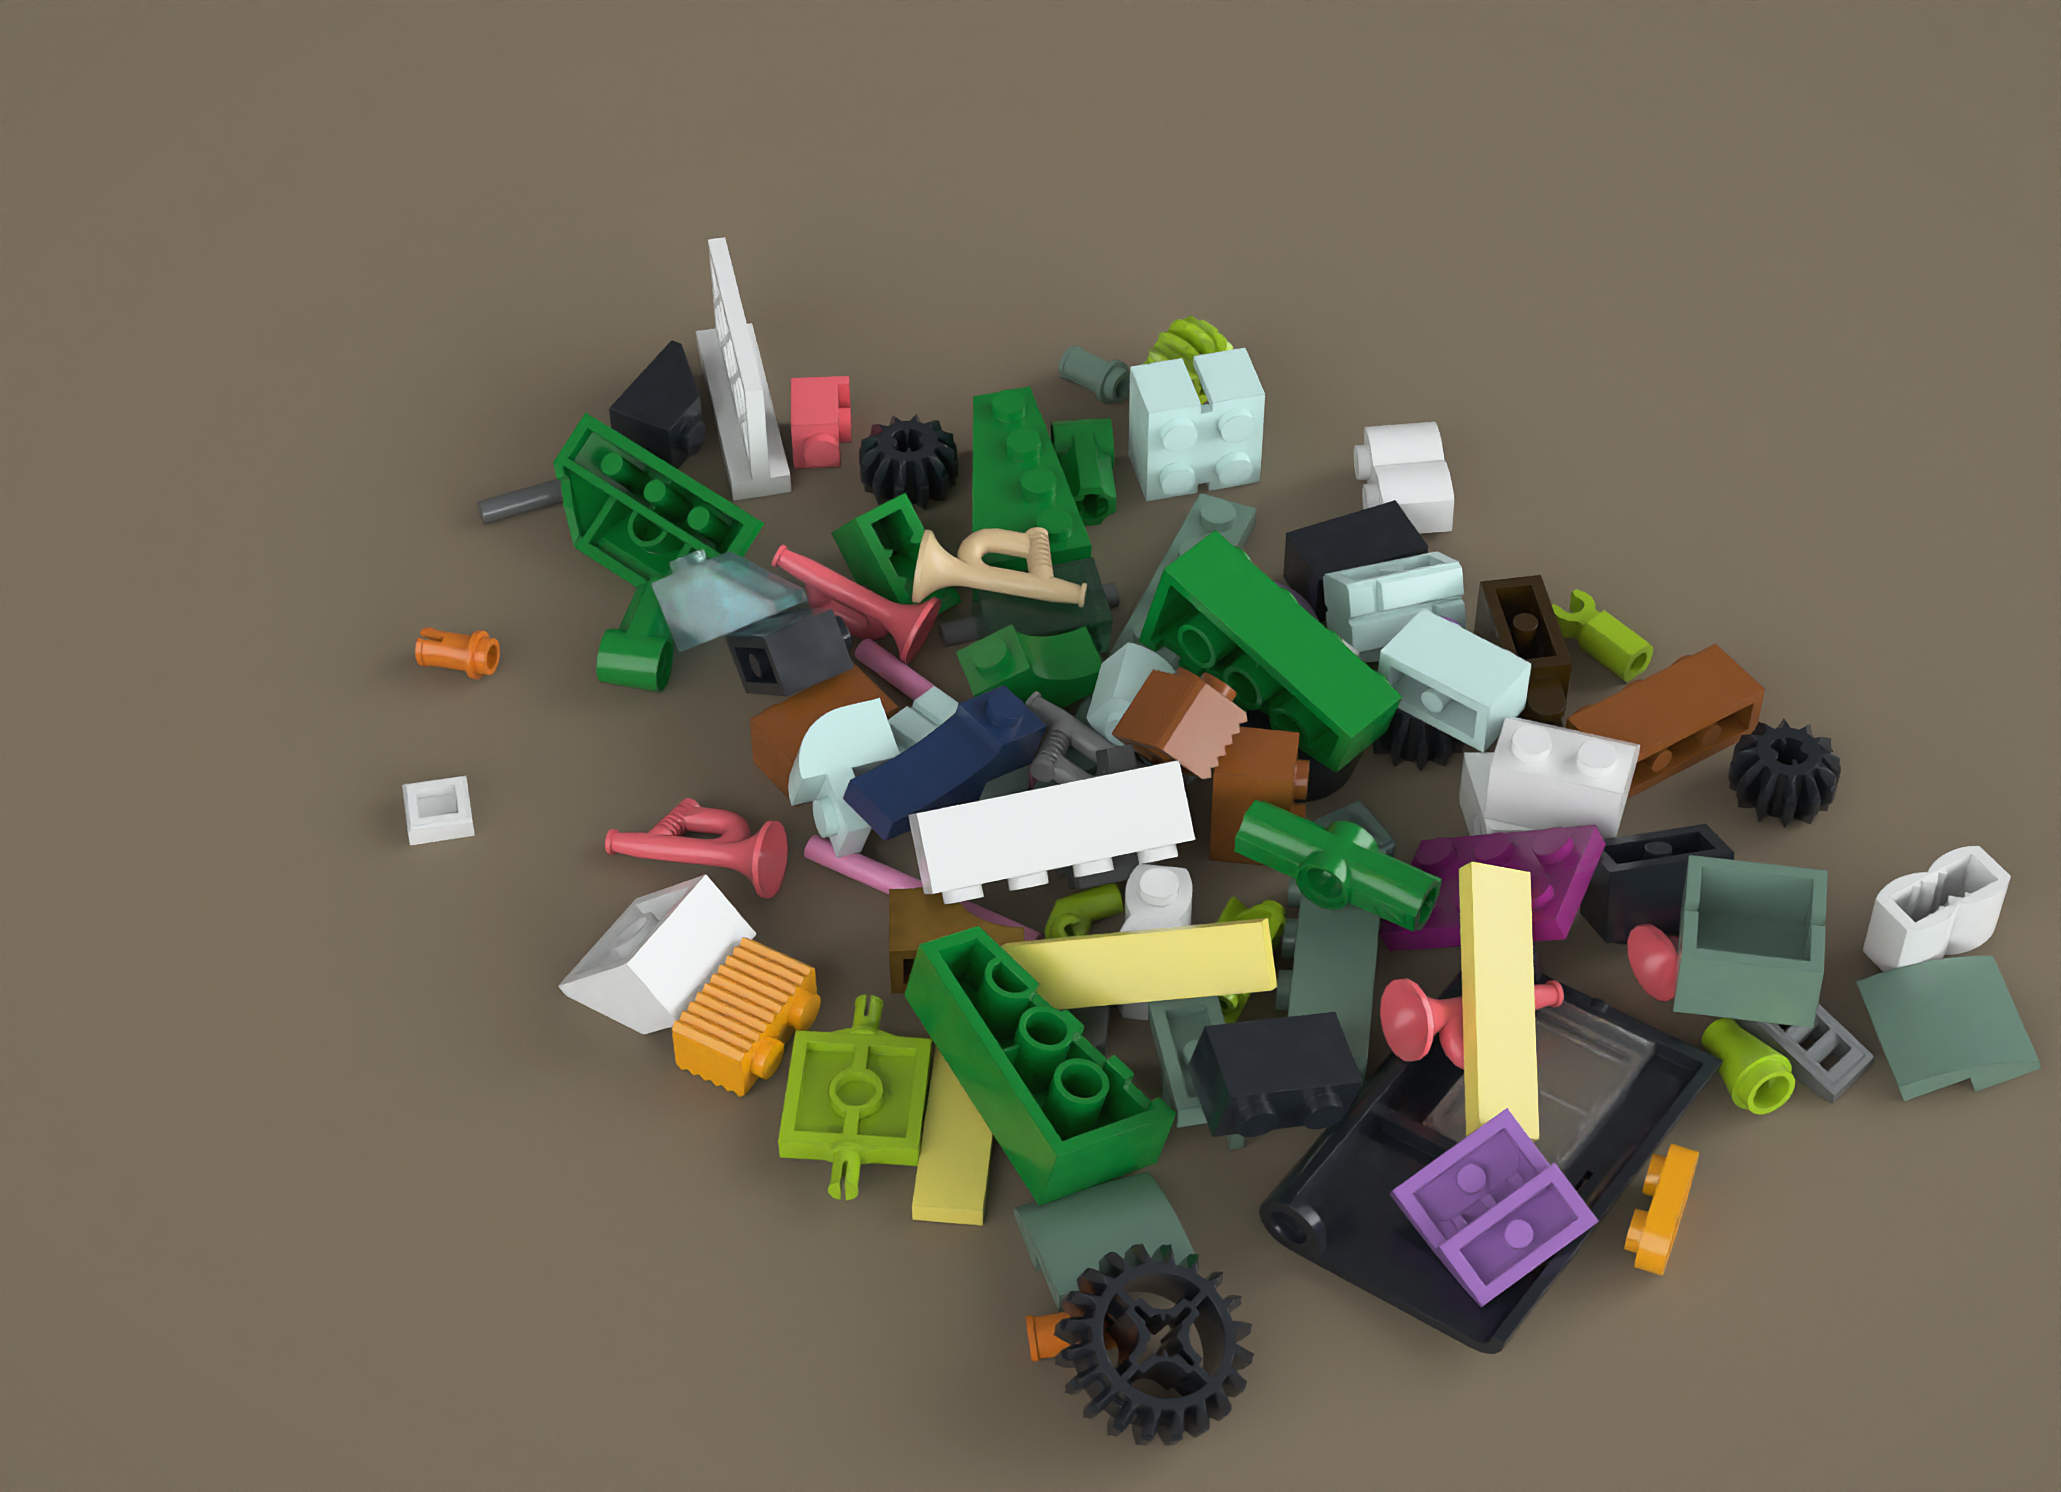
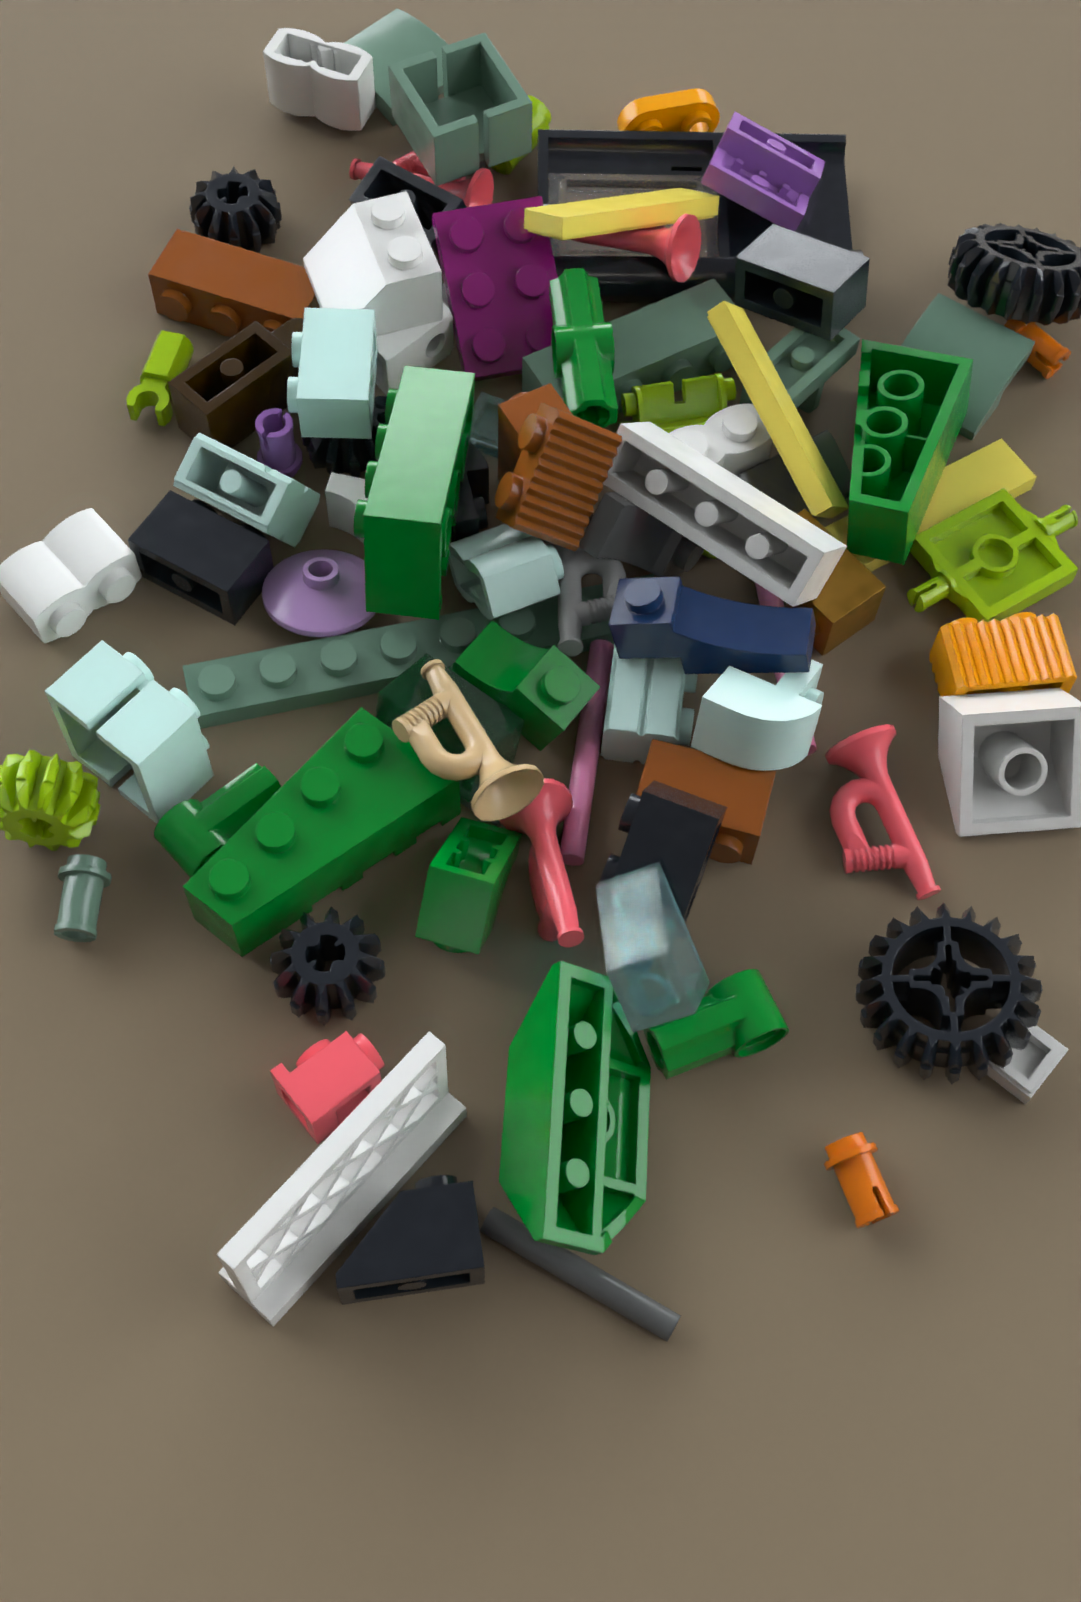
camera: 130 degrees left, 15 degrees up
(520, 777) = (998, 983): none -> black gear

